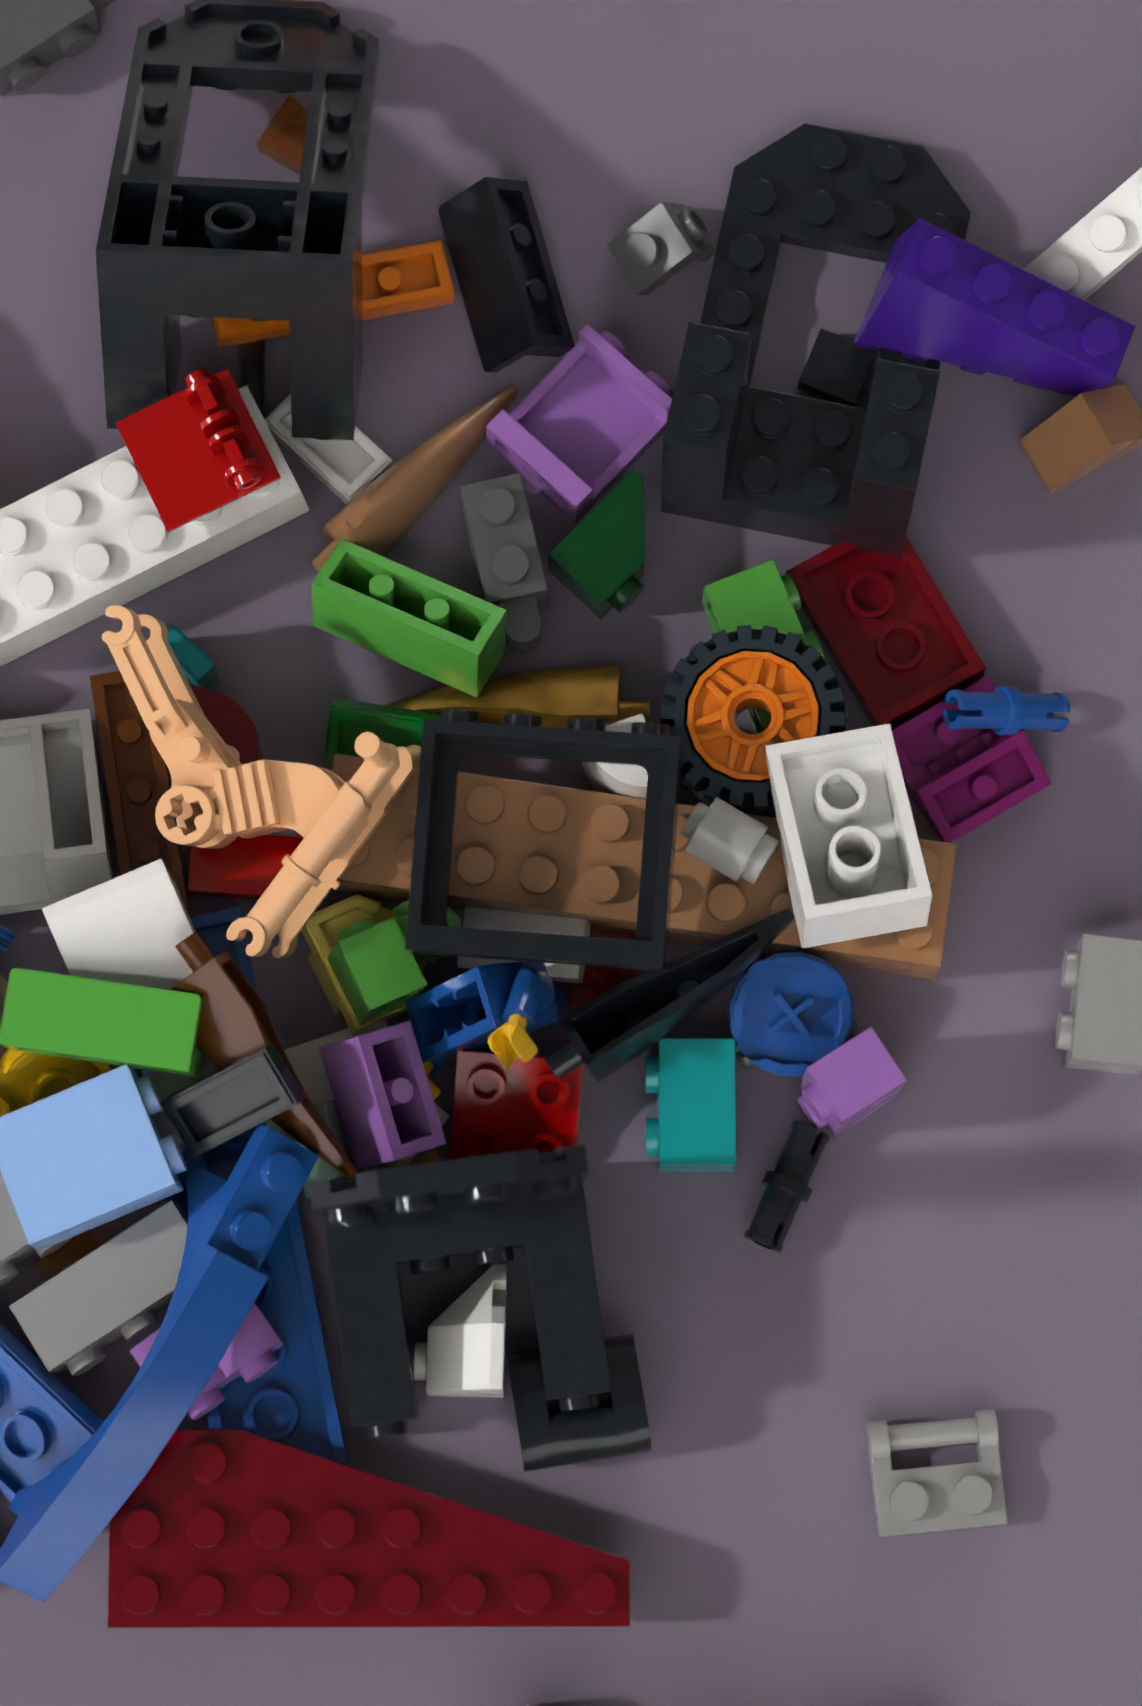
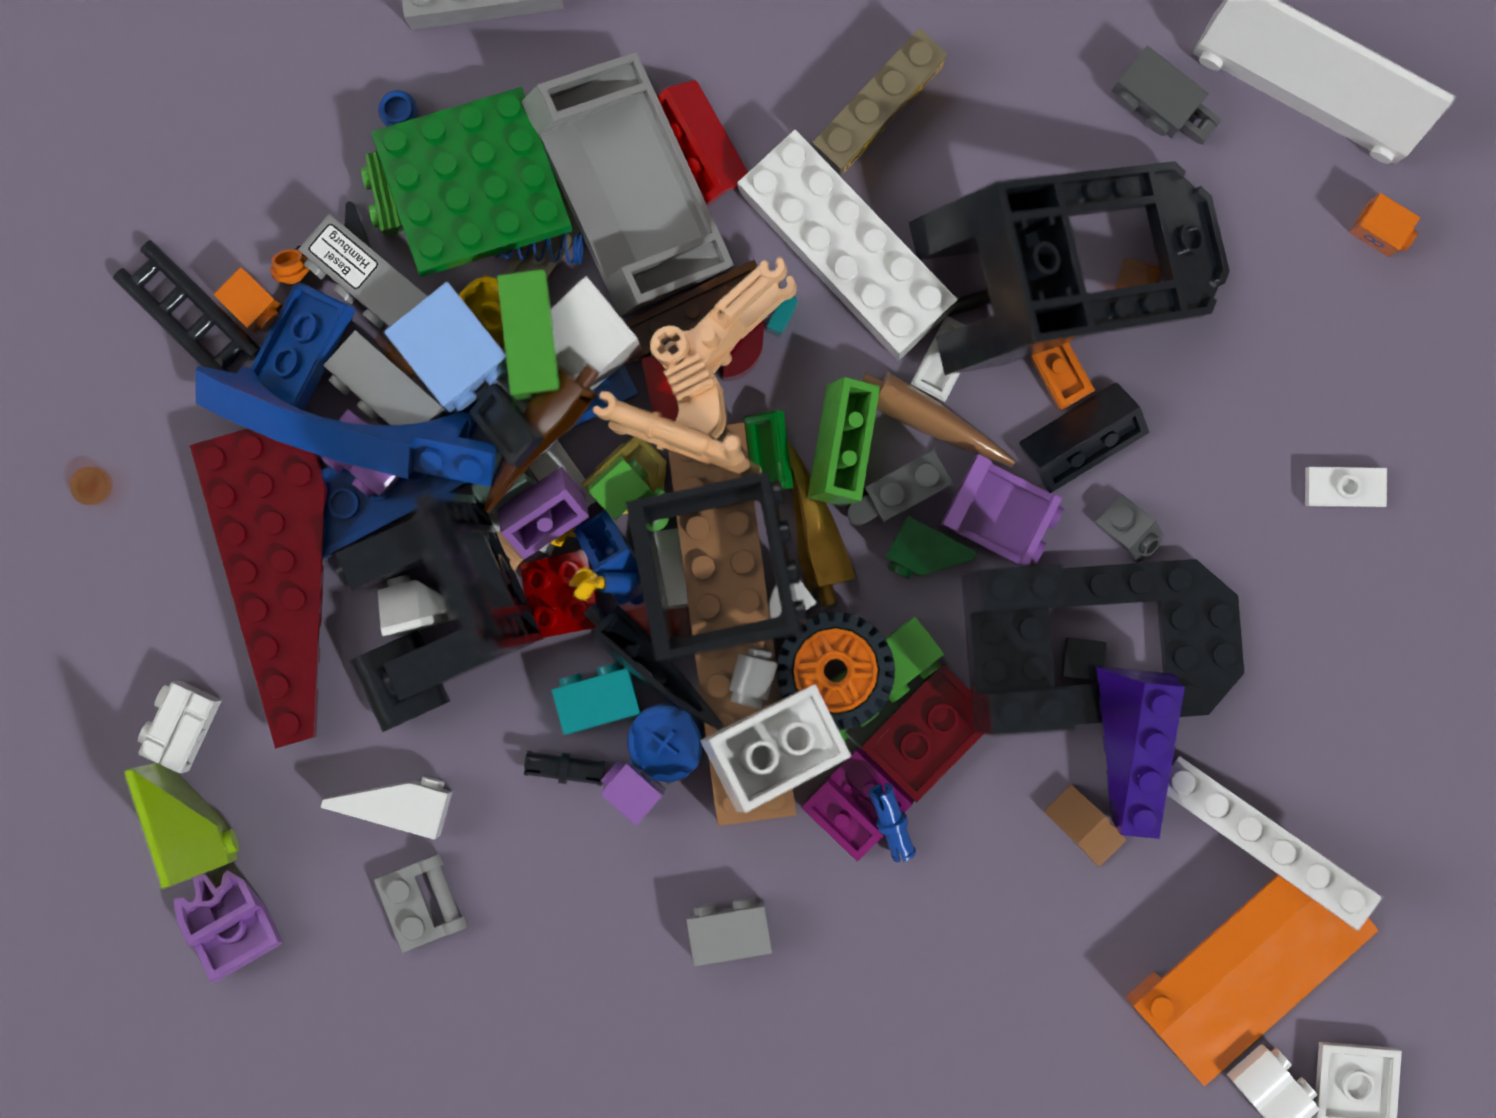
camera: 75 degrees right, 10 degrees up
(198, 449) = (904, 282): red hinge -> none
(775, 1453) = (406, 806): none -> white slope

